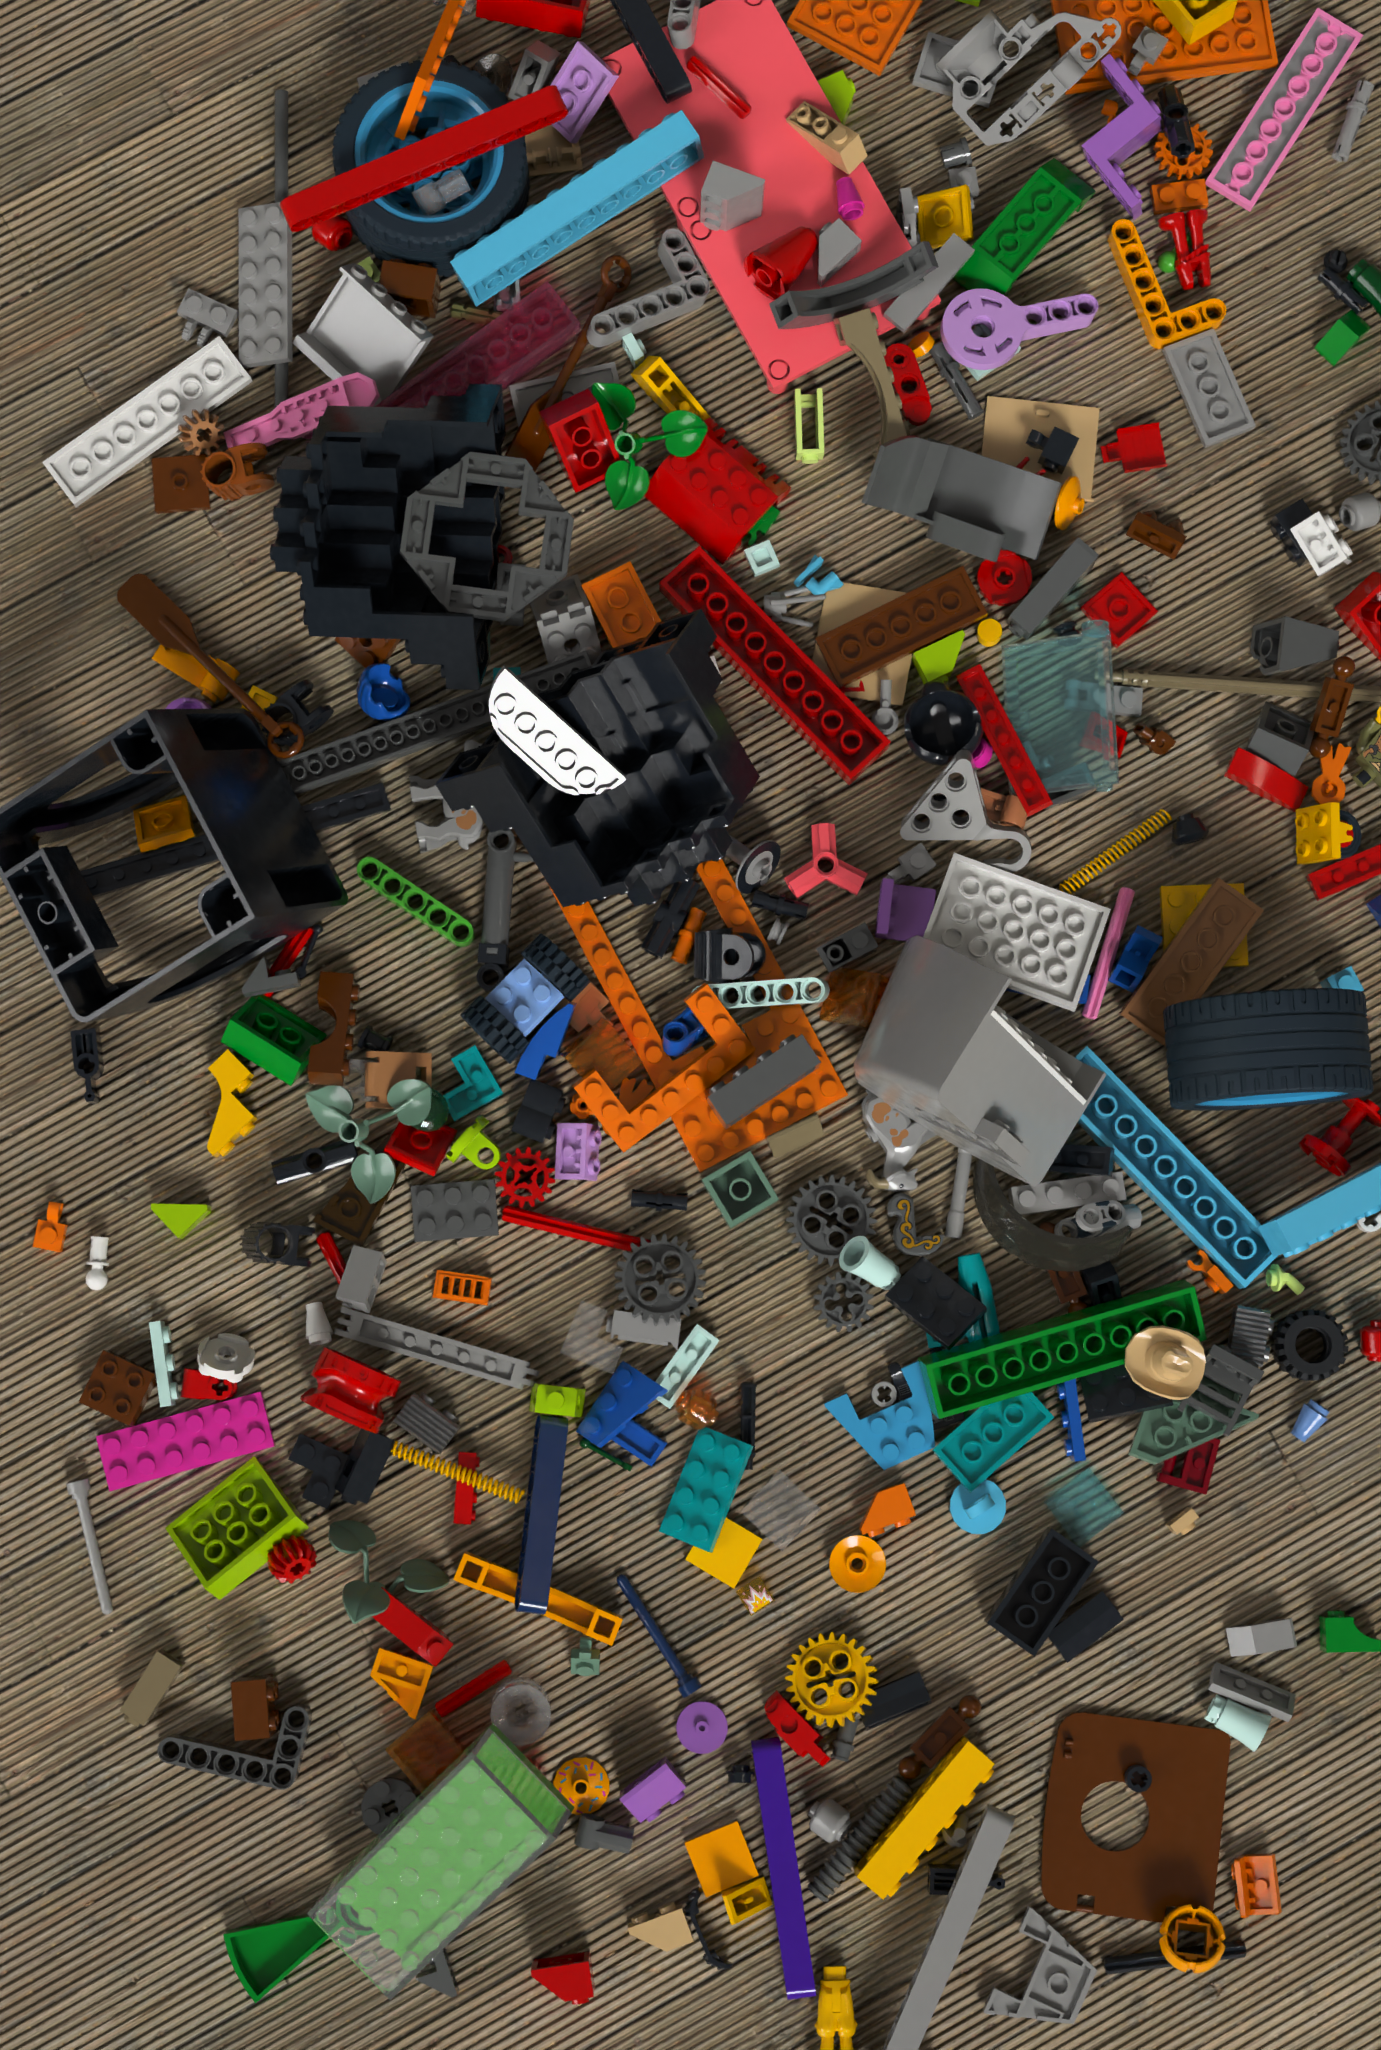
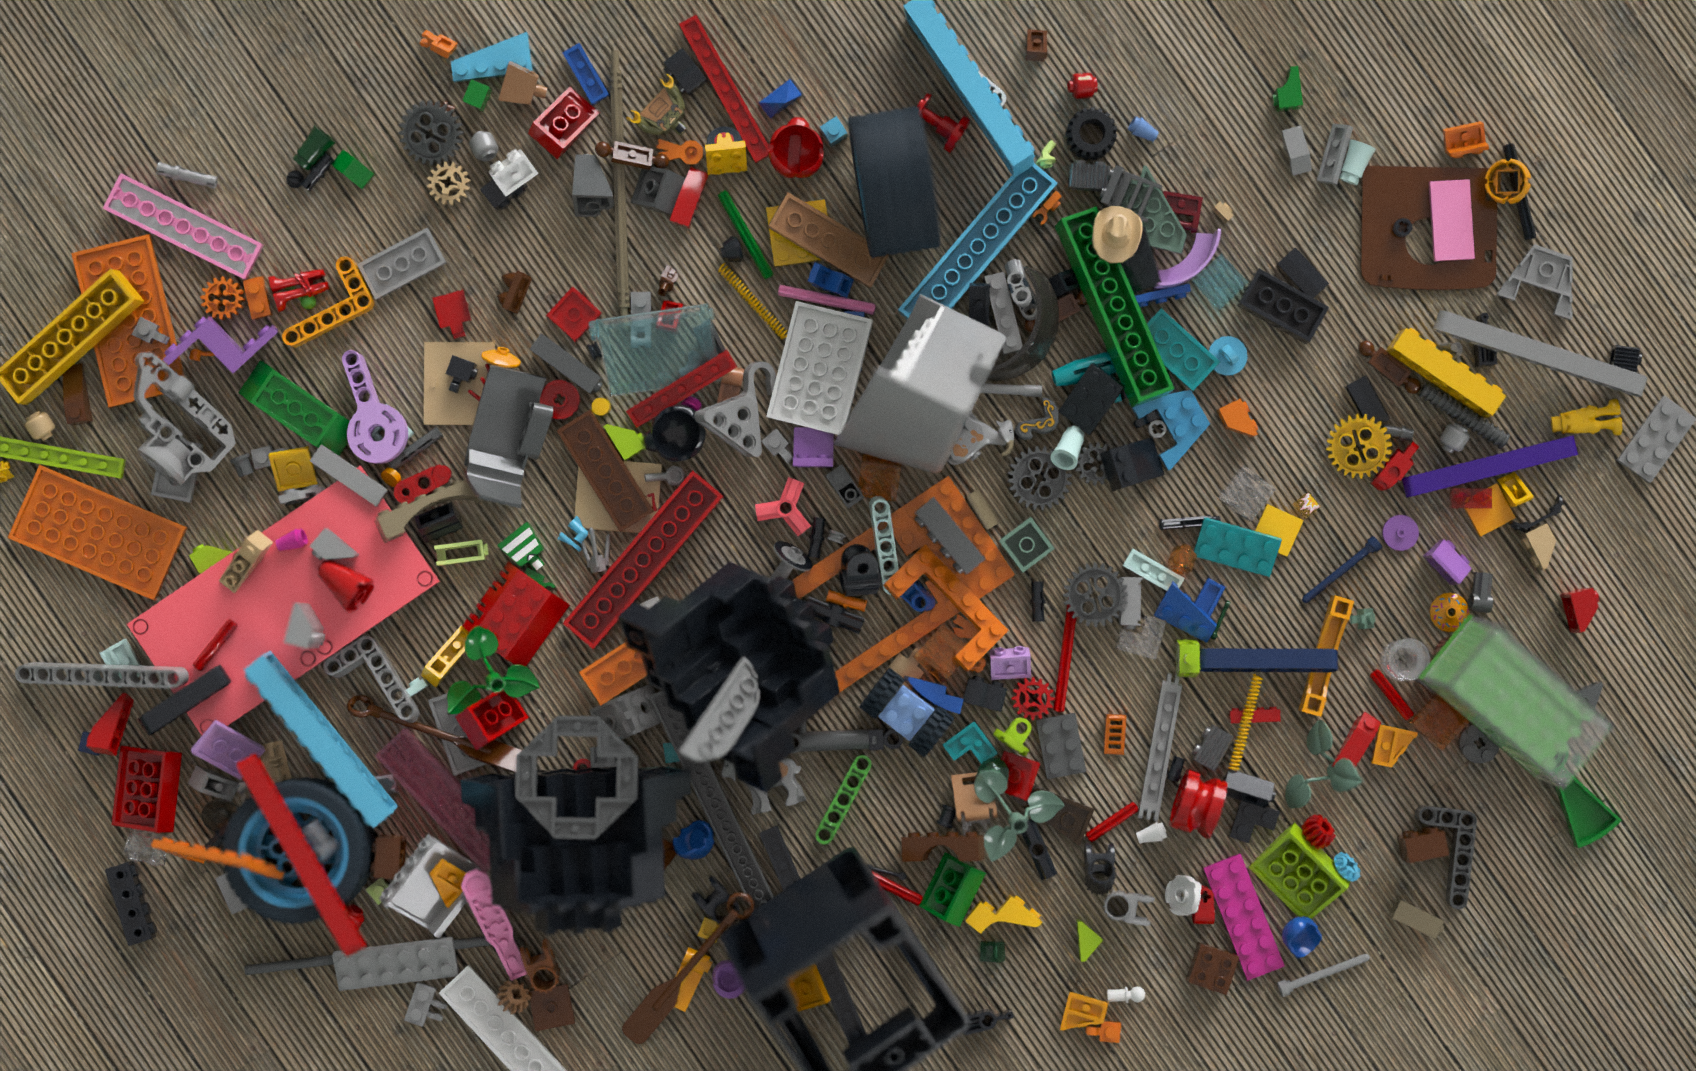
camera: 90 degrees left, 5 degrees up
(82, 1200) = (1083, 1011): none -> light orange wing
(147, 1518) = (1301, 936): none -> blue piece
(164, 1363) = (1191, 938): light aqua plate -> none
(181, 1085) = (992, 951): none -> clear green slope
(223, 1284) = (1132, 899): none -> light grey piece
(228, 1597) = (1347, 867): none -> medium azure gear
(261, 982) = (913, 902): dark grey slope -> none
(361, 1278) = (1117, 806): light grey hinge -> none
(368, 358) = (447, 881): none -> light orange wing
(403, 1368) = (1176, 769): none -> black pin
(473, 313) = (402, 802): olive axle -> none
(739, 1774) = (1430, 503): black plate -> none
(740, 1834) = (1470, 498): none -> clear red tile
(761, 558) = (563, 577): light aqua plate -> none
(808, 509) = (523, 547): none -> torso
(823, 305) = (365, 529): dark grey arch -> none
(838, 1352) = (1132, 464): none -> black slope
(853, 399) = (439, 522): none -> black brick
(872, 1566) = (1284, 428): light orange dish -> none
(1111, 1468) = (1197, 259): none -> lavender panel
(1142, 1851) = (1451, 220): none -> bright pink tile
(1176, 121) = (205, 305): black piece -> none
(1208, 851) = (745, 234): none -> green axle
(1321, 929) = (796, 149): none -> red piece
(1322, 462) = (450, 175): none -> tan gear

